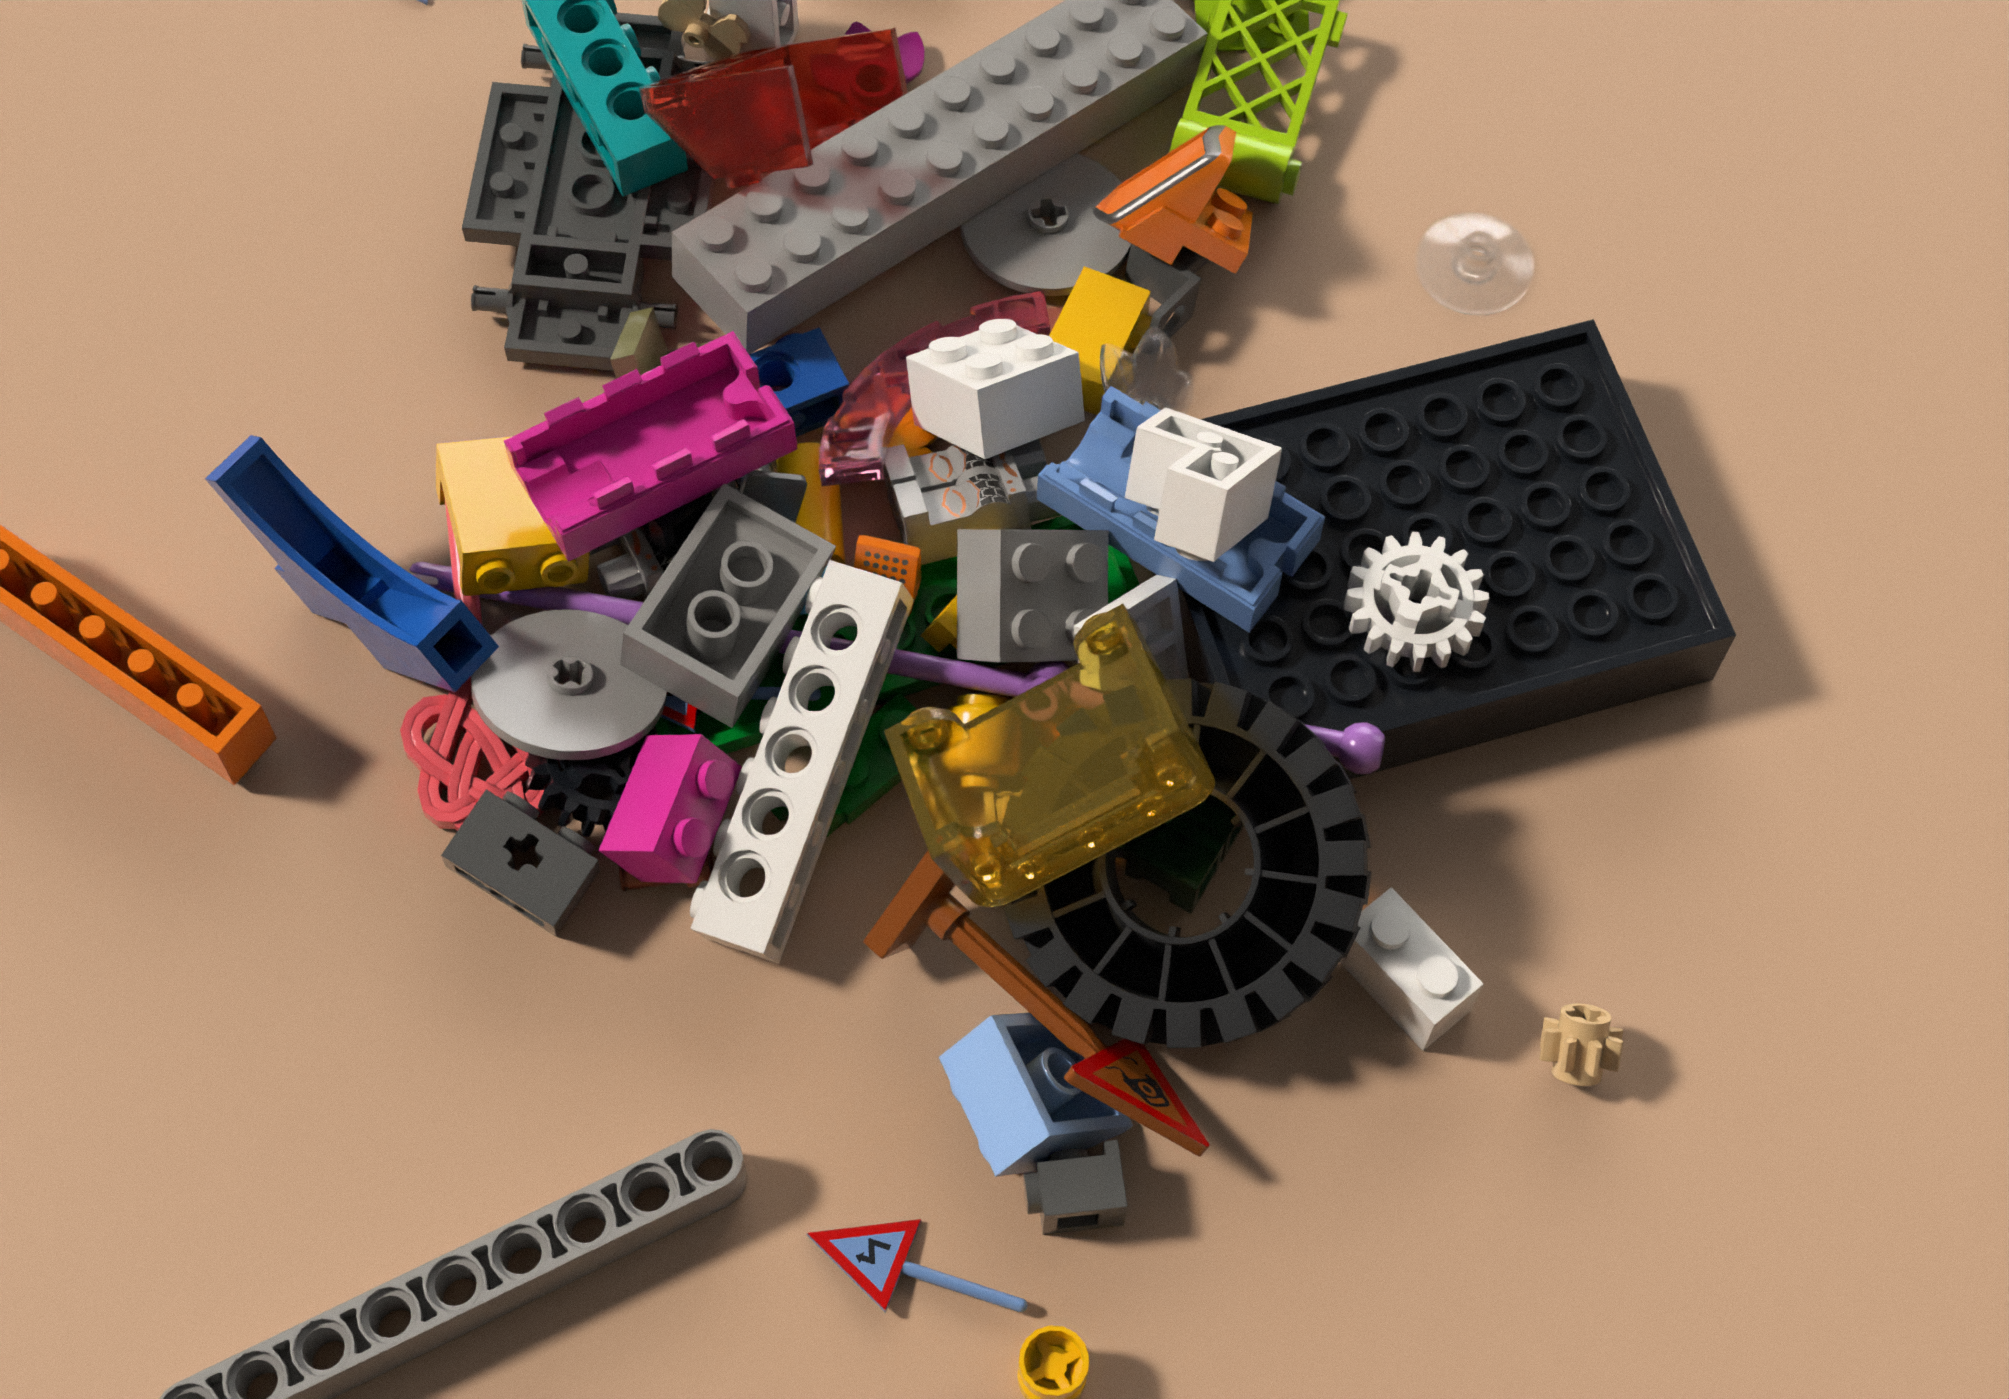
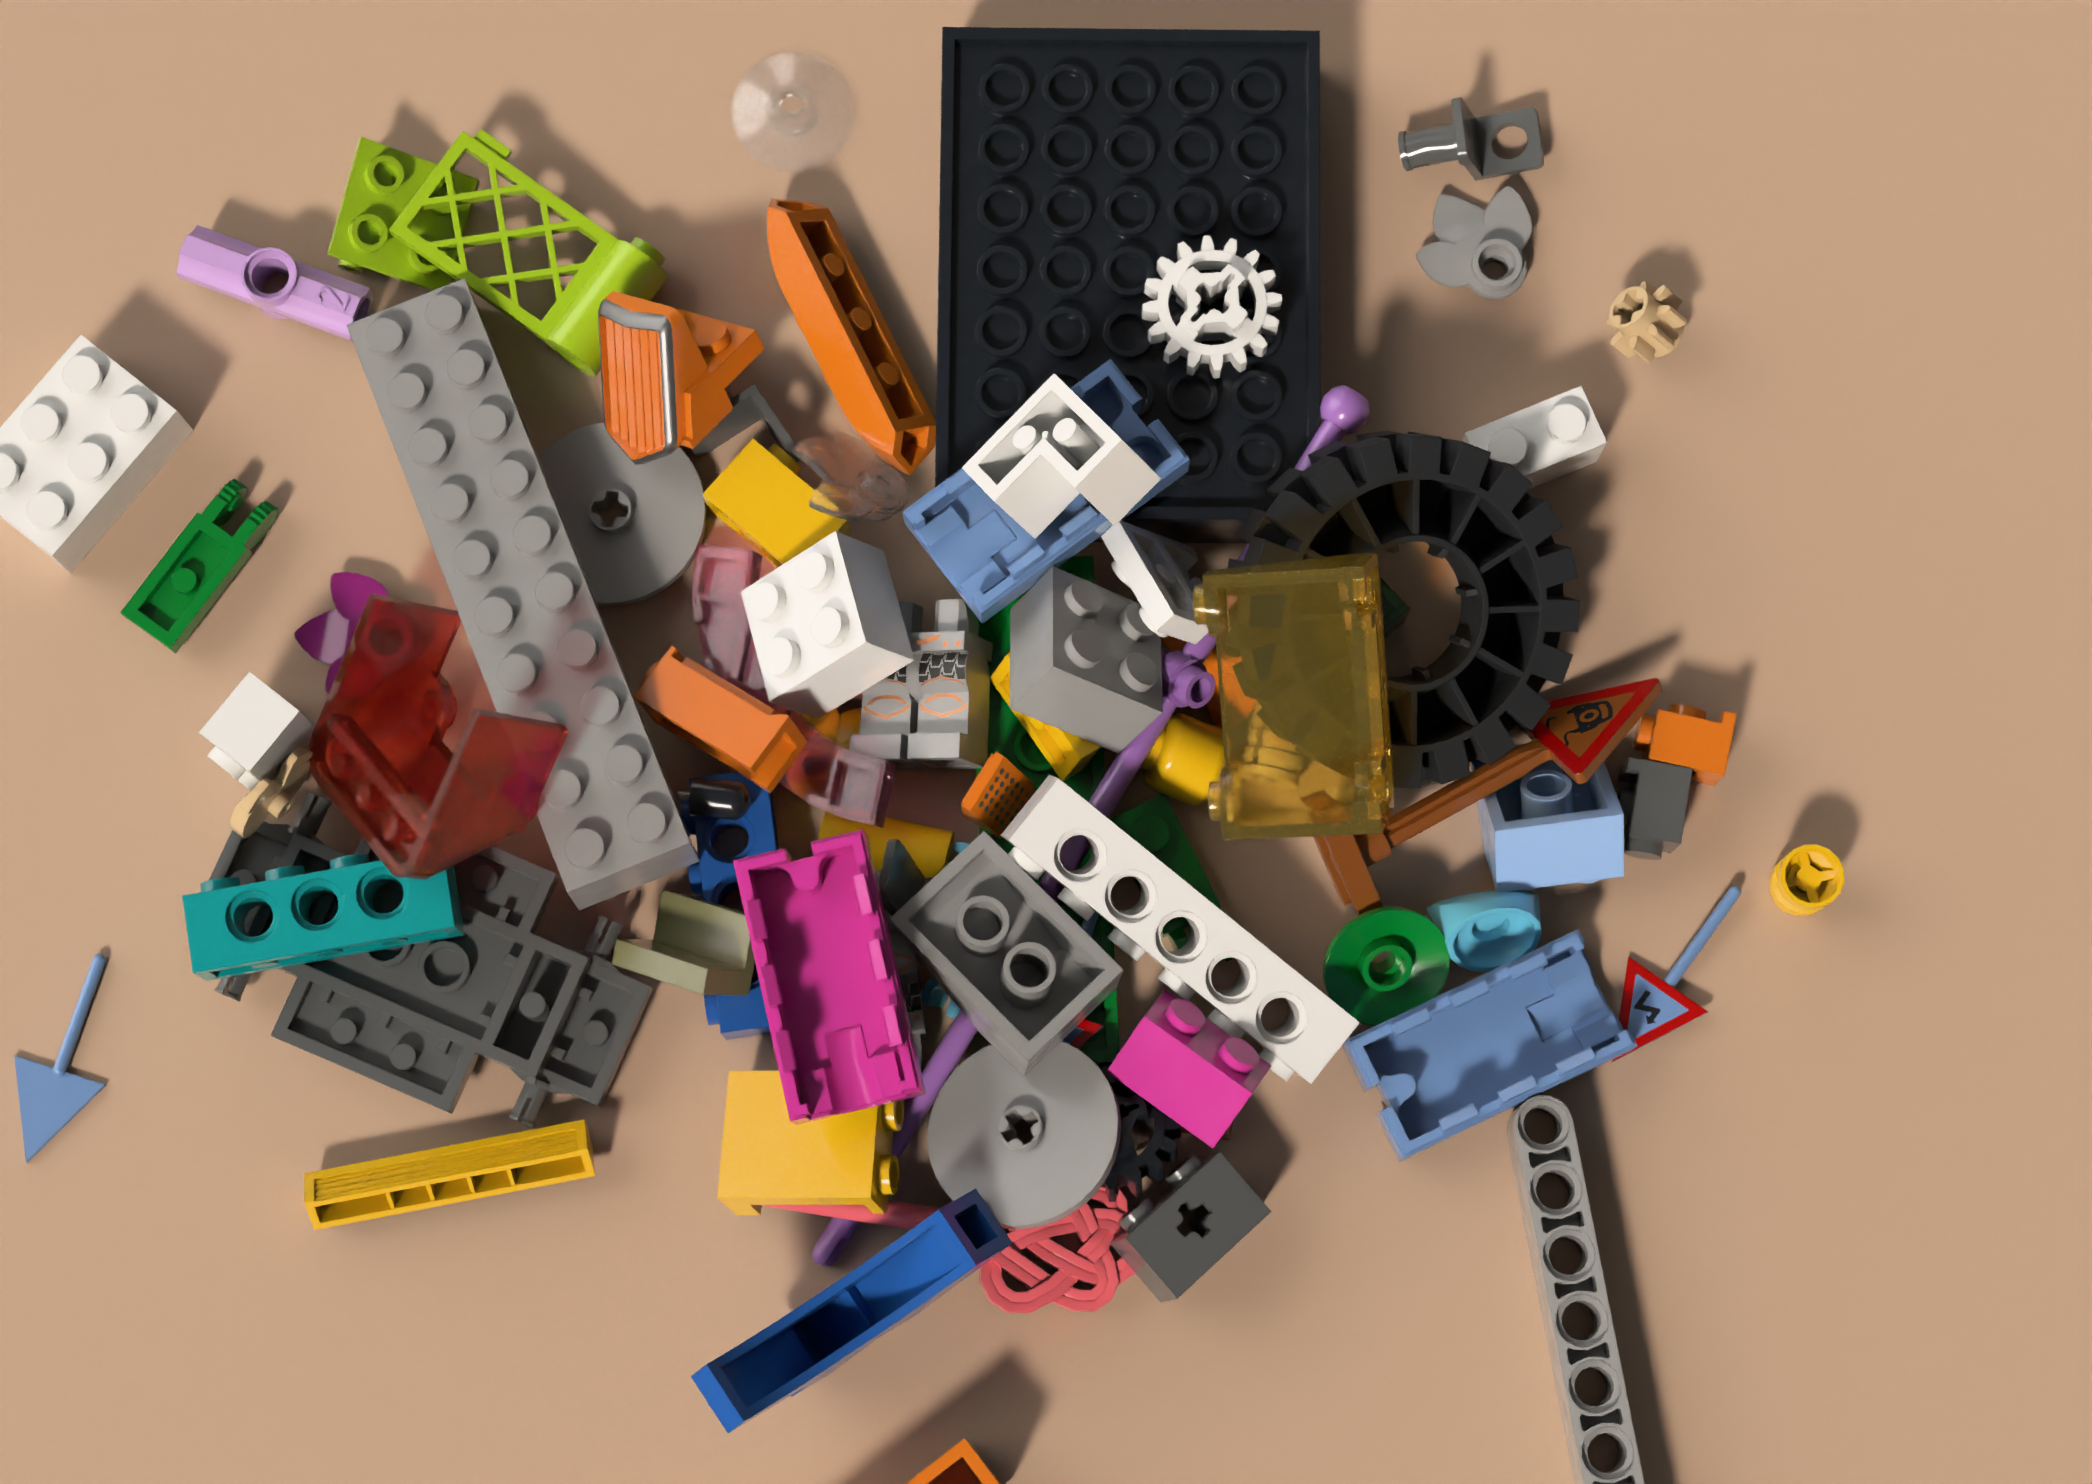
camera: 70 degrees left, 15 degrees up
(414, 260) = (449, 1174): none -> yellow piece
(784, 1096) = (1488, 1045): none -> medium blue piece
(804, 345) = (717, 798): none -> black piece
(810, 982) = (1402, 981): none -> green dish
(878, 328) = (720, 719): none -> orange window
(903, 1067) = (1488, 927): none -> medium azure piece
(1158, 1206) = (1687, 740): none -> orange brick
(1292, 336) = (848, 333): none -> orange brick
(1601, 867) = (1475, 237): none -> light grey plate
(1697, 833) = (1471, 142): none -> dark grey bracket

